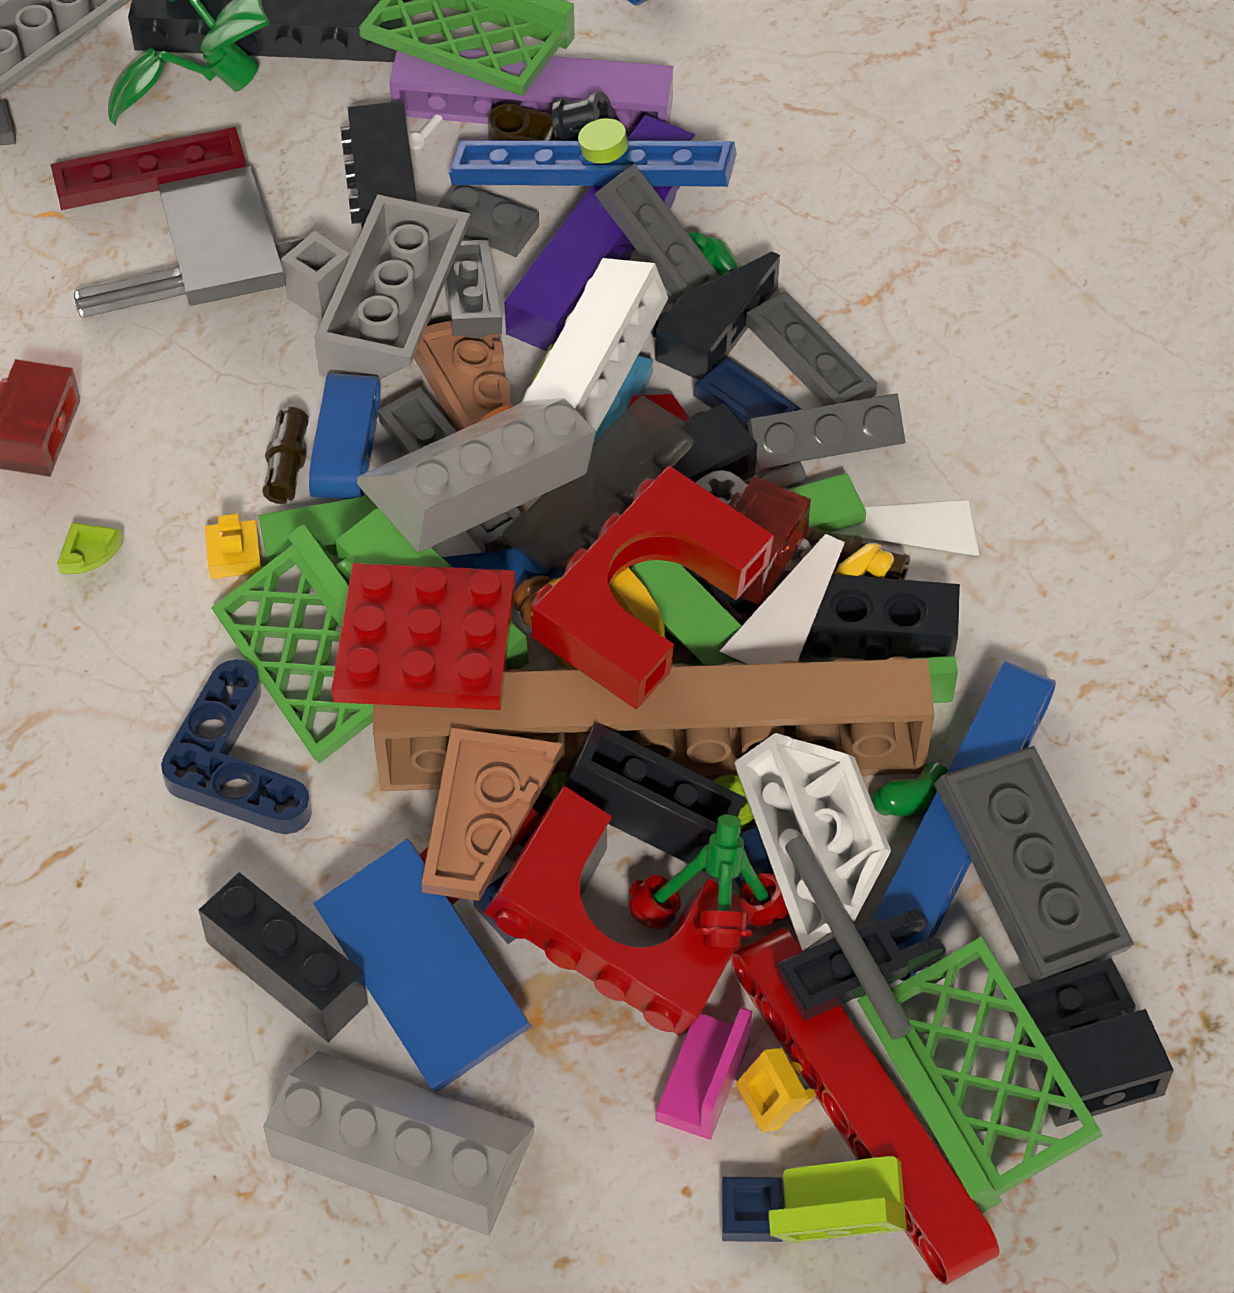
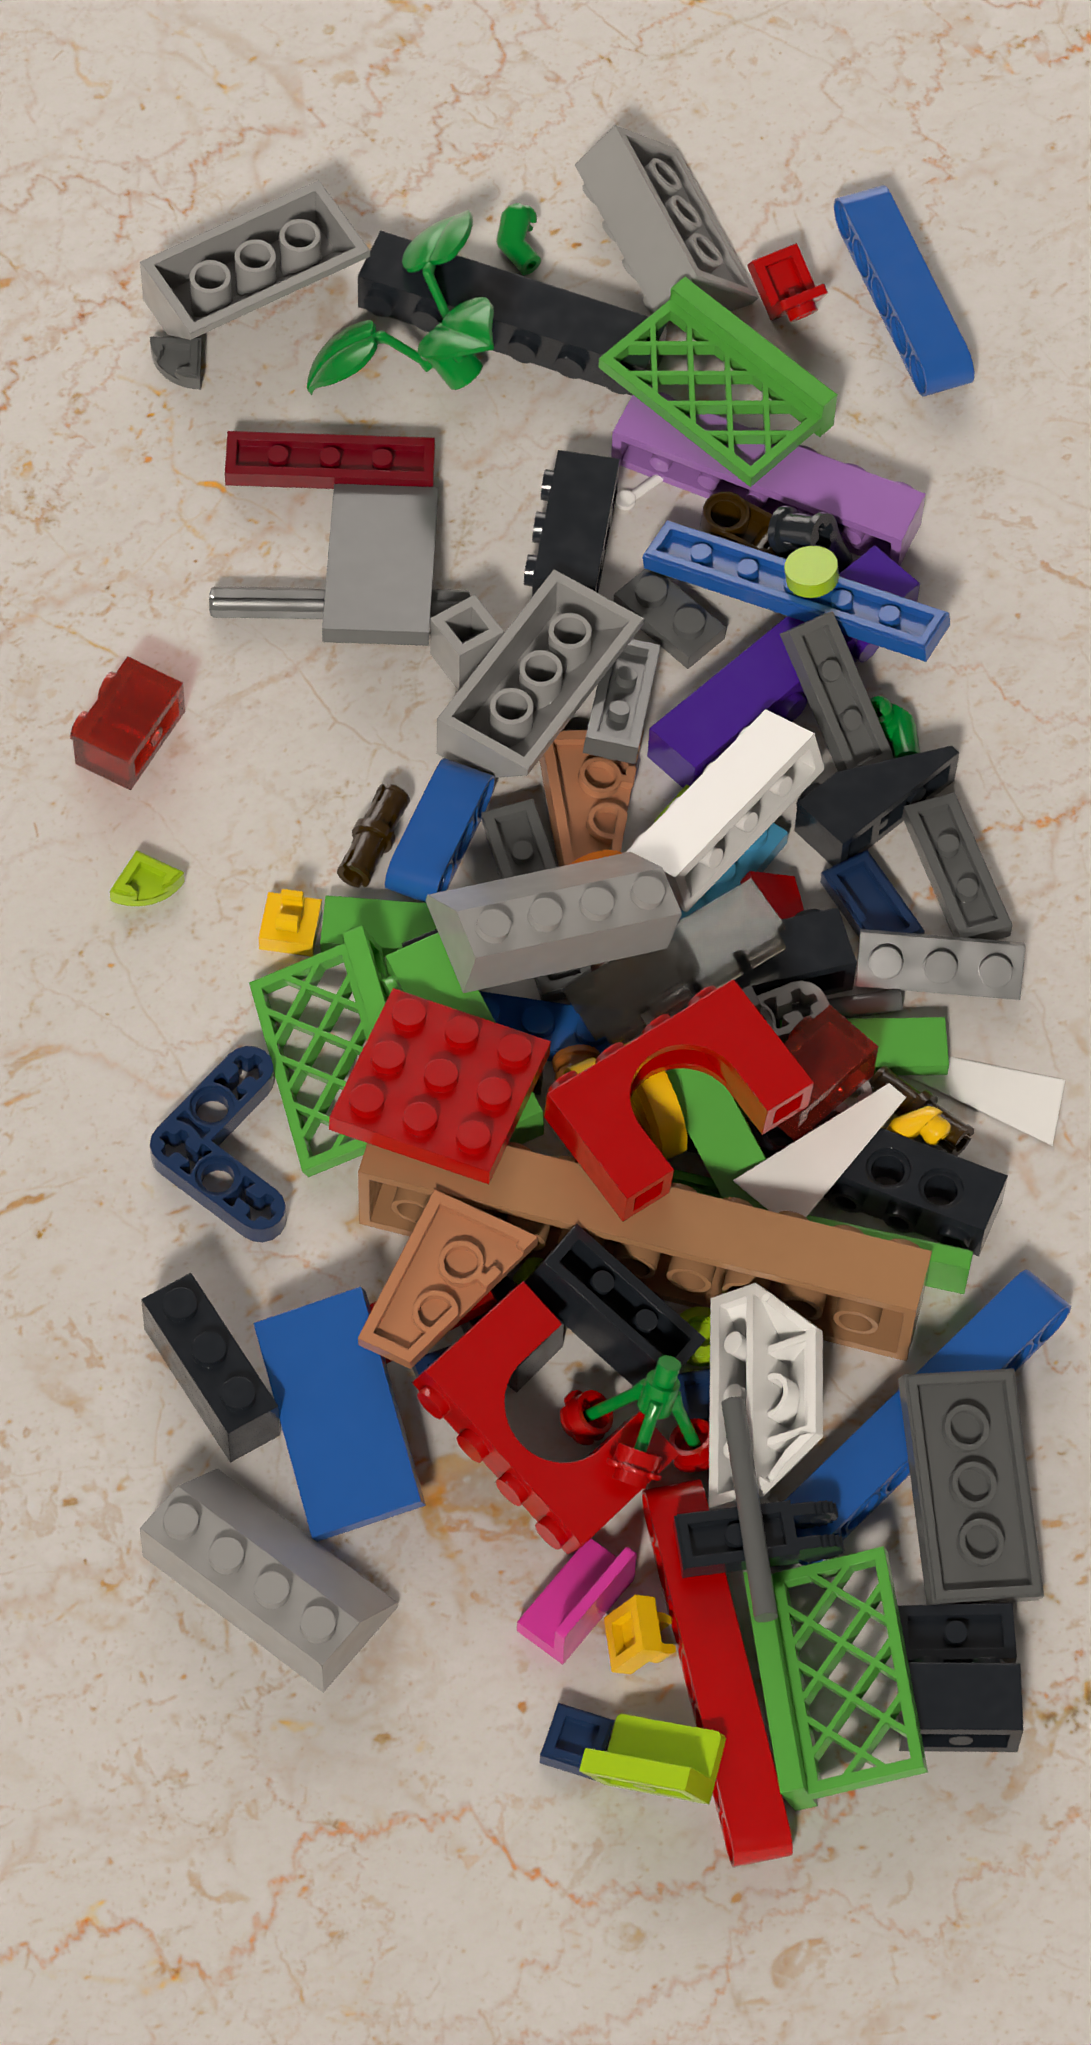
camera: 15 degrees right, 5 degrees up
(909, 796) = (878, 1381): green arm -> none

